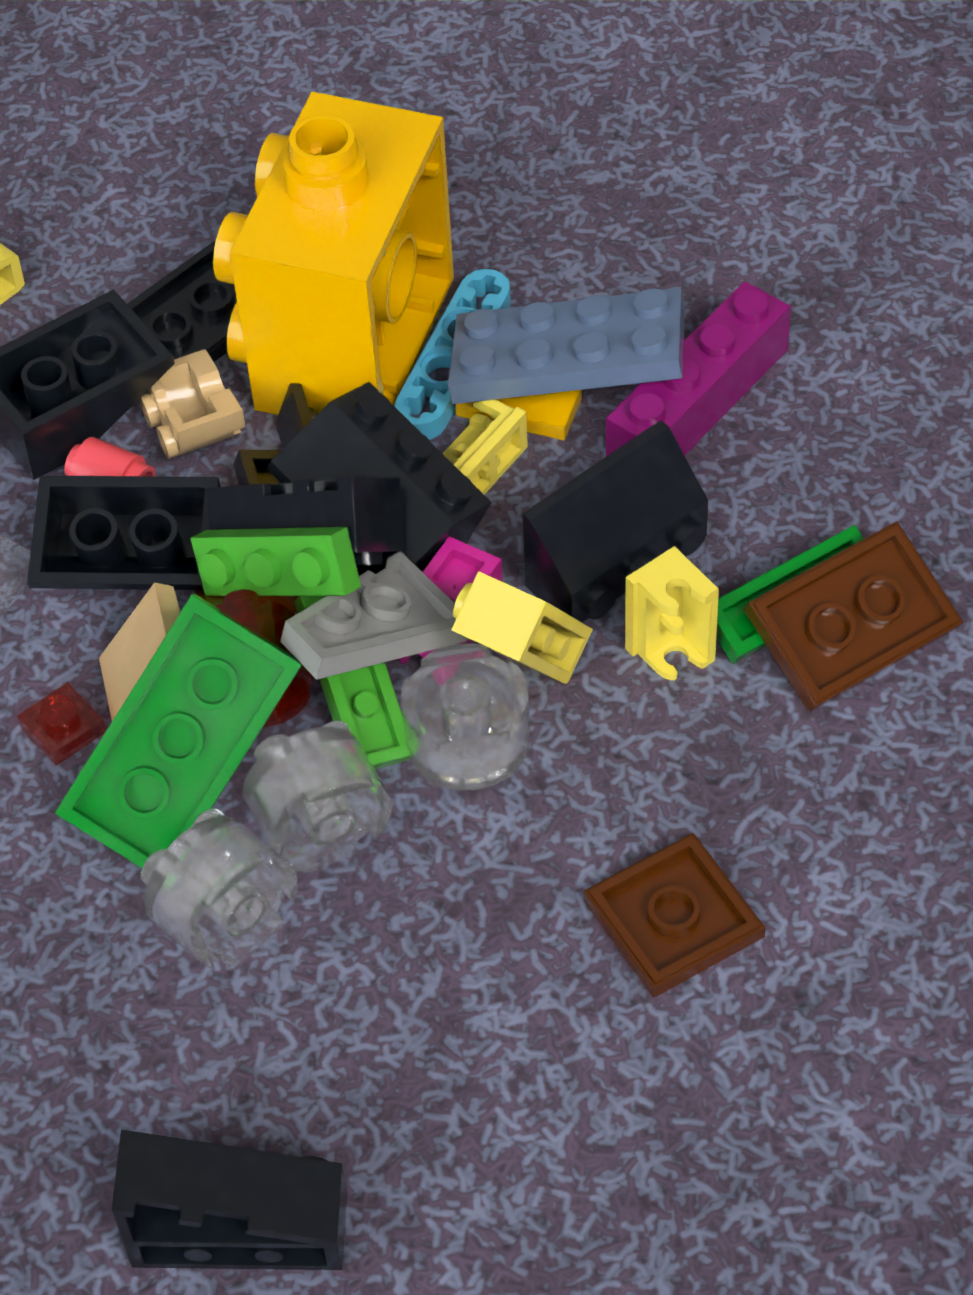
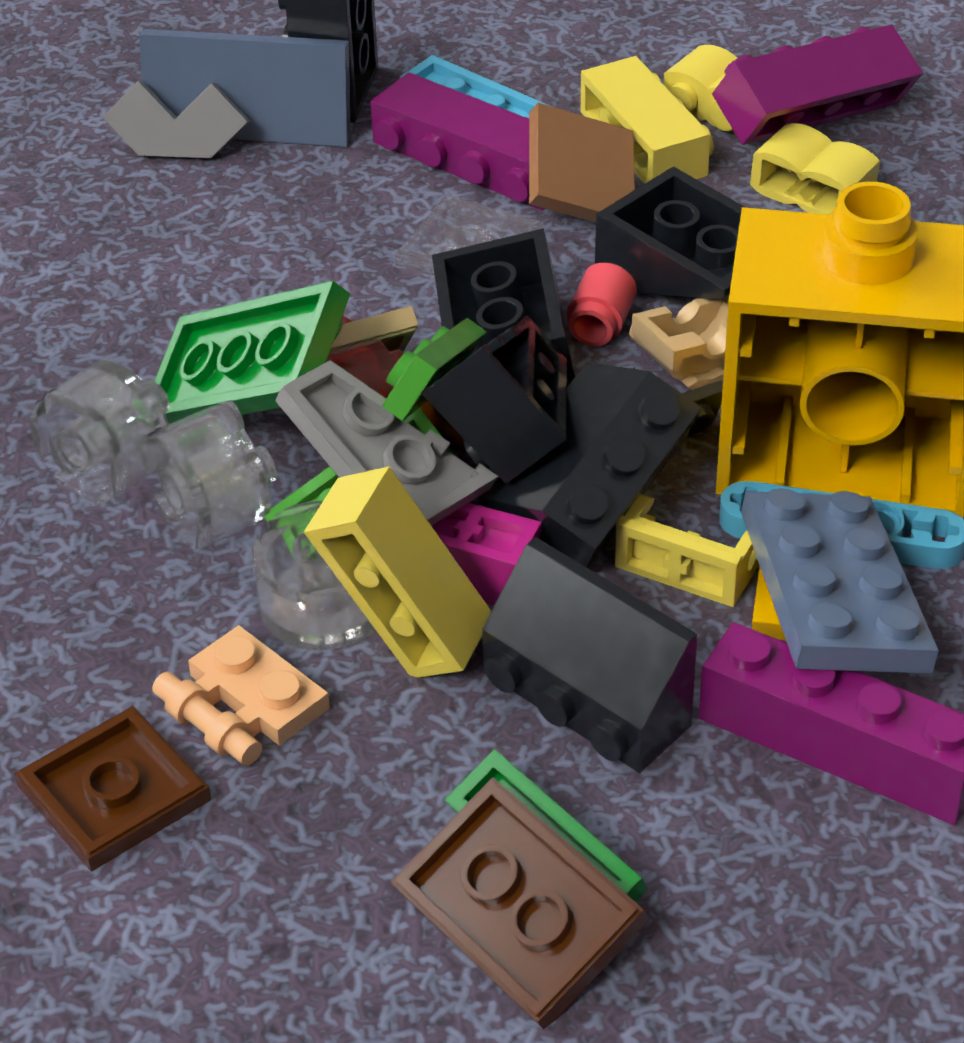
camera: 80 degrees right, 10 degrees down
(570, 793) = (251, 680): none -> light nougat plate
(670, 610) = (475, 702): light yellow hinge -> none

